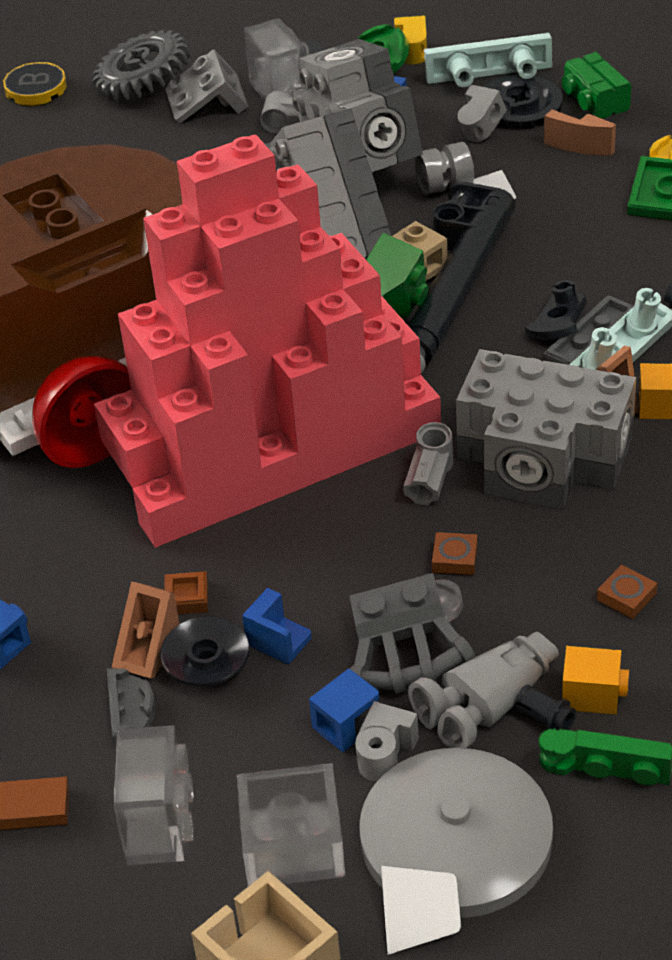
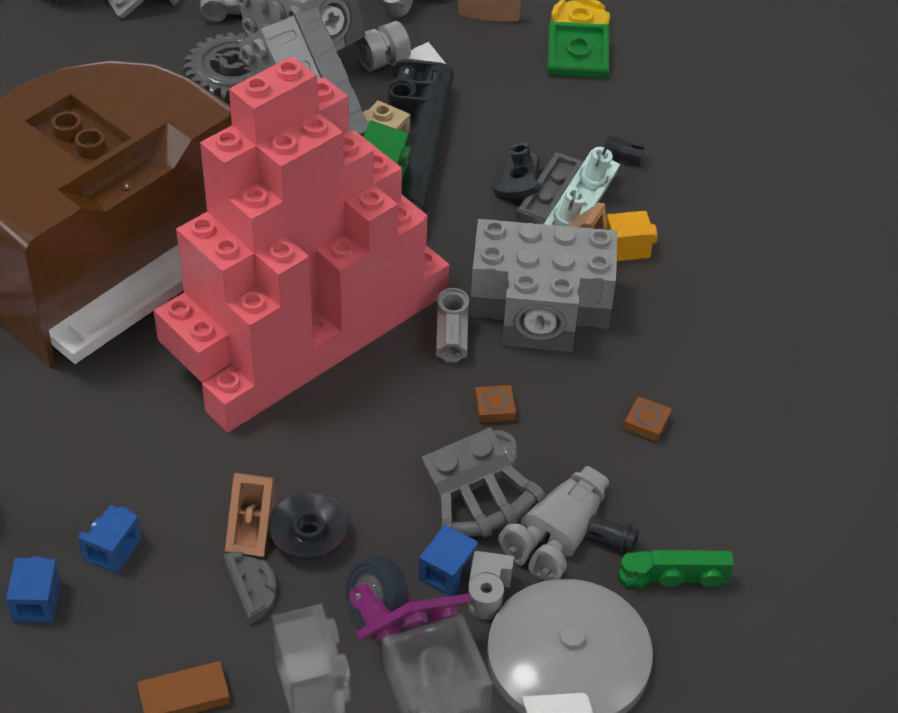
camera: 20 degrees left, 5 degrees up
(65, 409) = (127, 316): red piece -> none
(189, 591) = (275, 466): dark orange tile -> none
(256, 742) = (381, 603): none -> plate
(271, 631) = (360, 498): blue panel -> none
(594, 679) = (646, 502): light orange brick -> none

